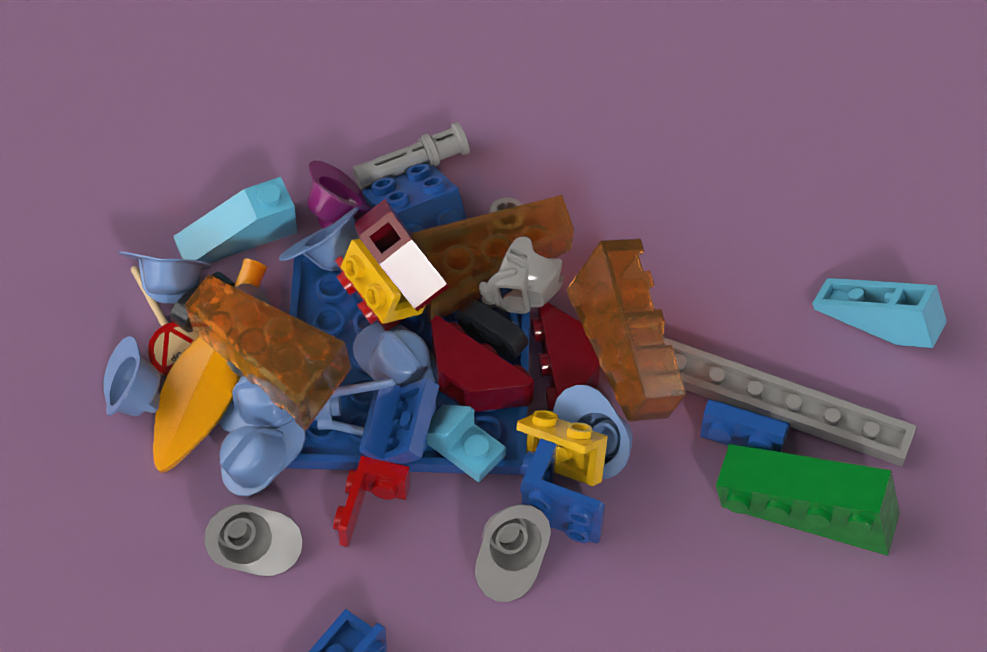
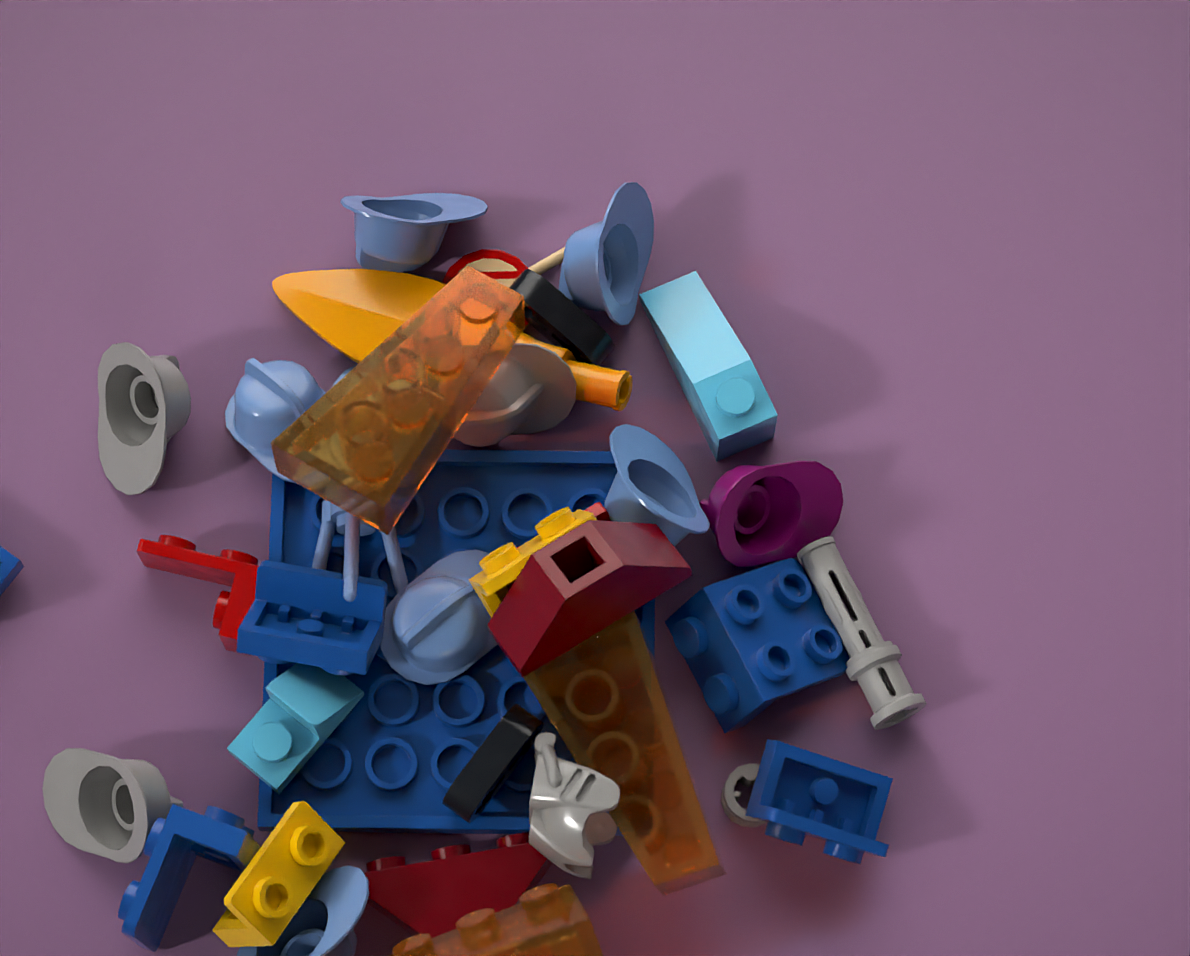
camera: 90 degrees right, 15 degrees up
(475, 372) = (414, 730): dark red slope -> none
(516, 173) = (819, 798): none -> blue bracket

